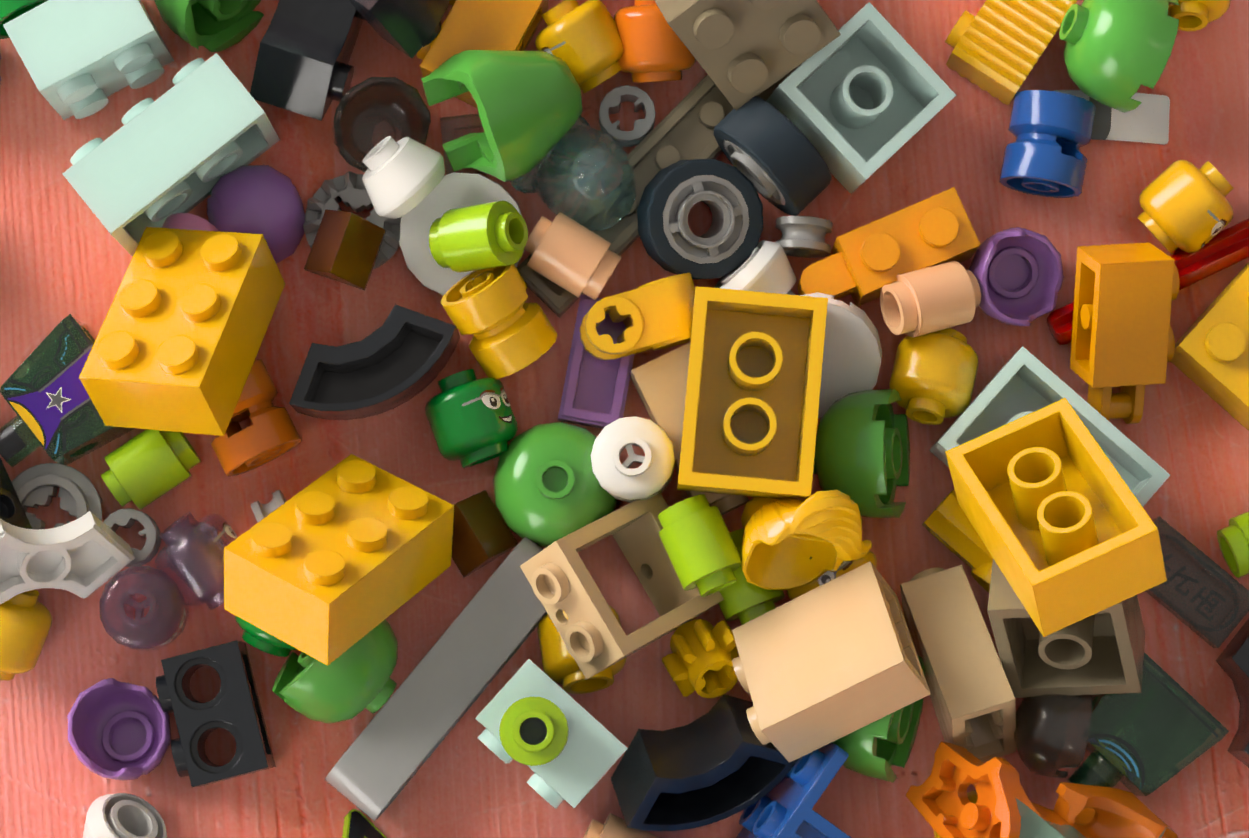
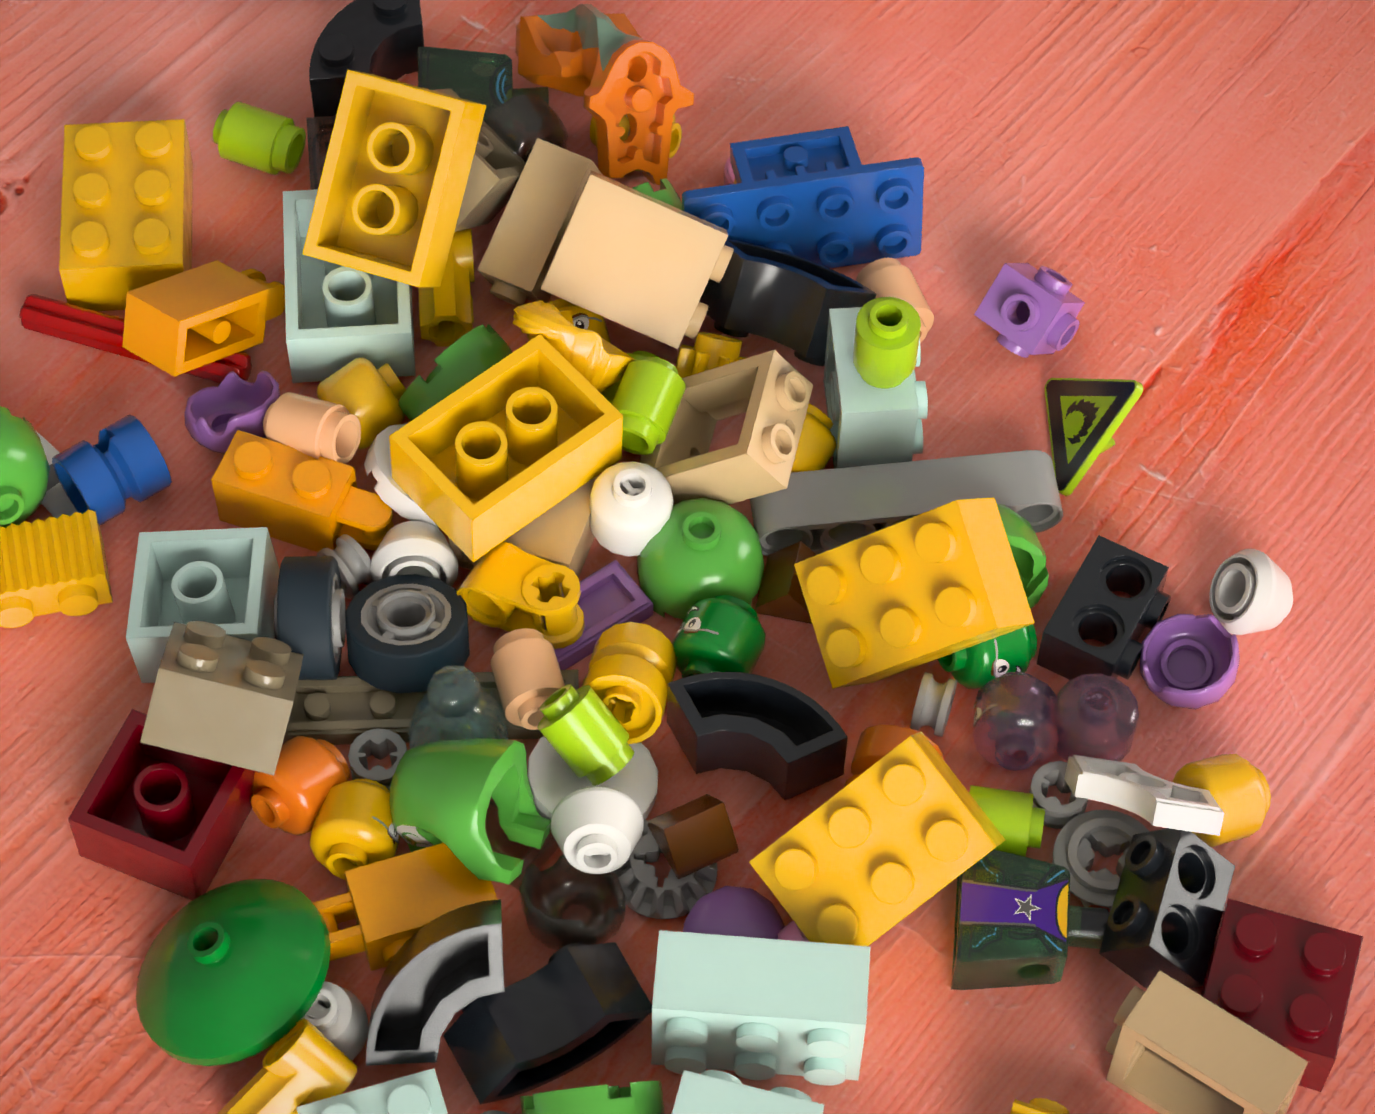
camera: 135 degrees left, 25 degrees down
(1186, 206) = (68, 359): yellow head -> none

